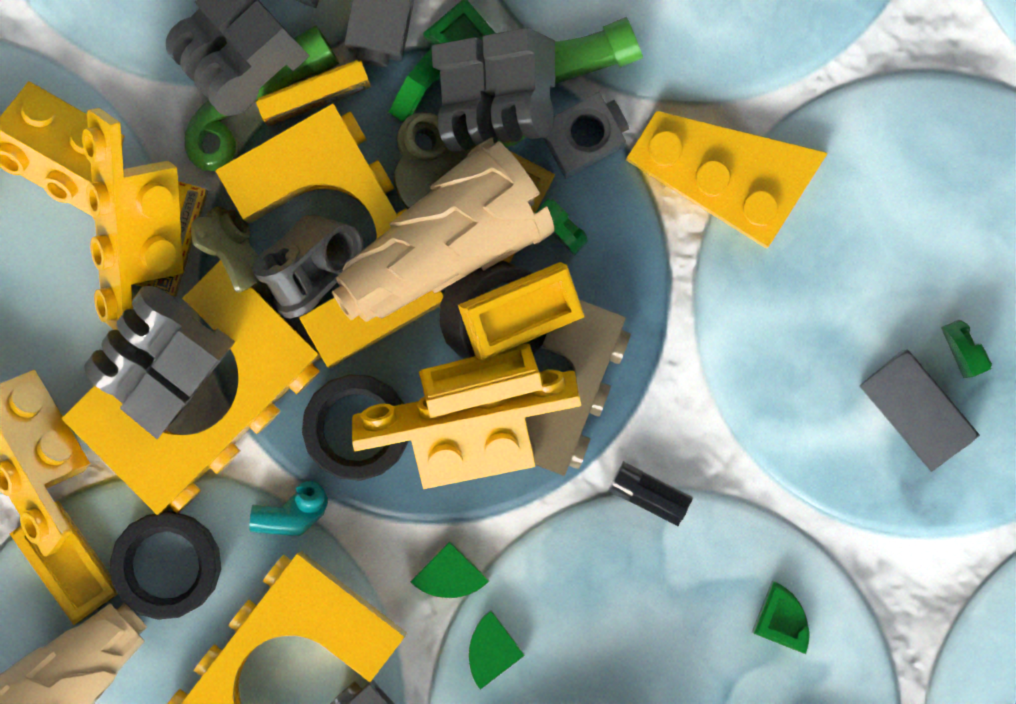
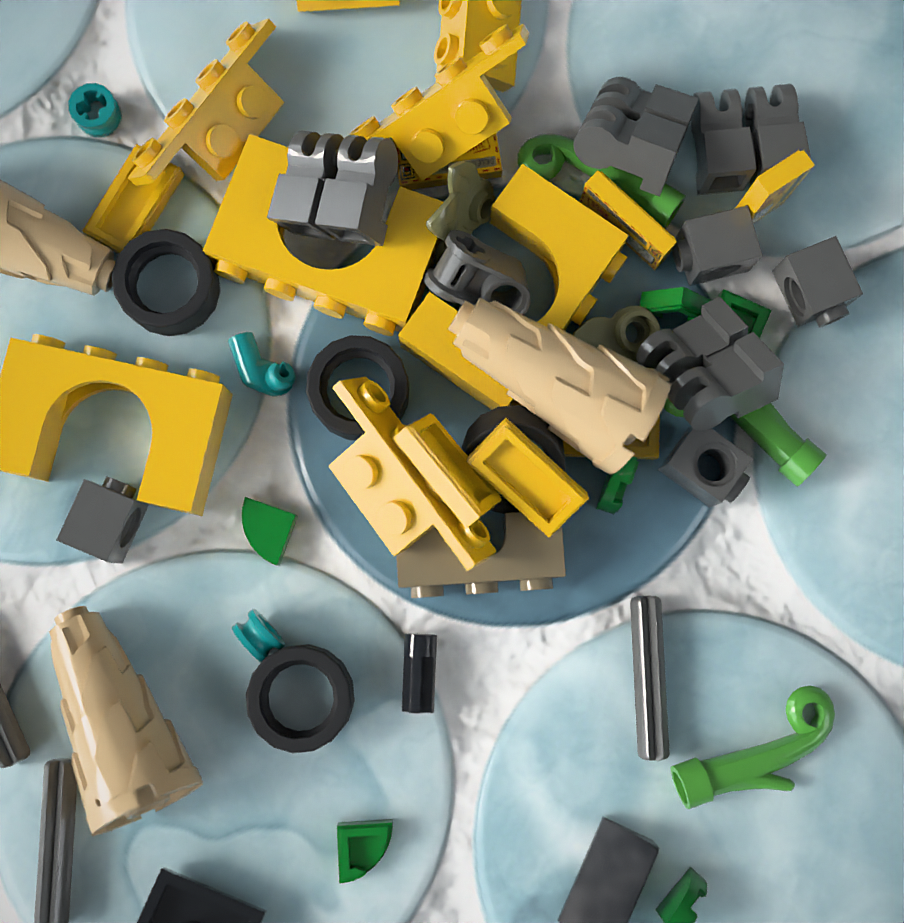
camera: 60 degrees right, 5 degrees down
(491, 650) = (217, 596): green tile -> none
(547, 627) = (258, 635): none -> teal bush
(652, 644) = (258, 698): none -> black tyre
(727, 172) = (734, 608): yellow wing -> none
(754, 282) = (649, 678): none -> dark grey axle
(878, 225) = (752, 767): none -> bright green plant

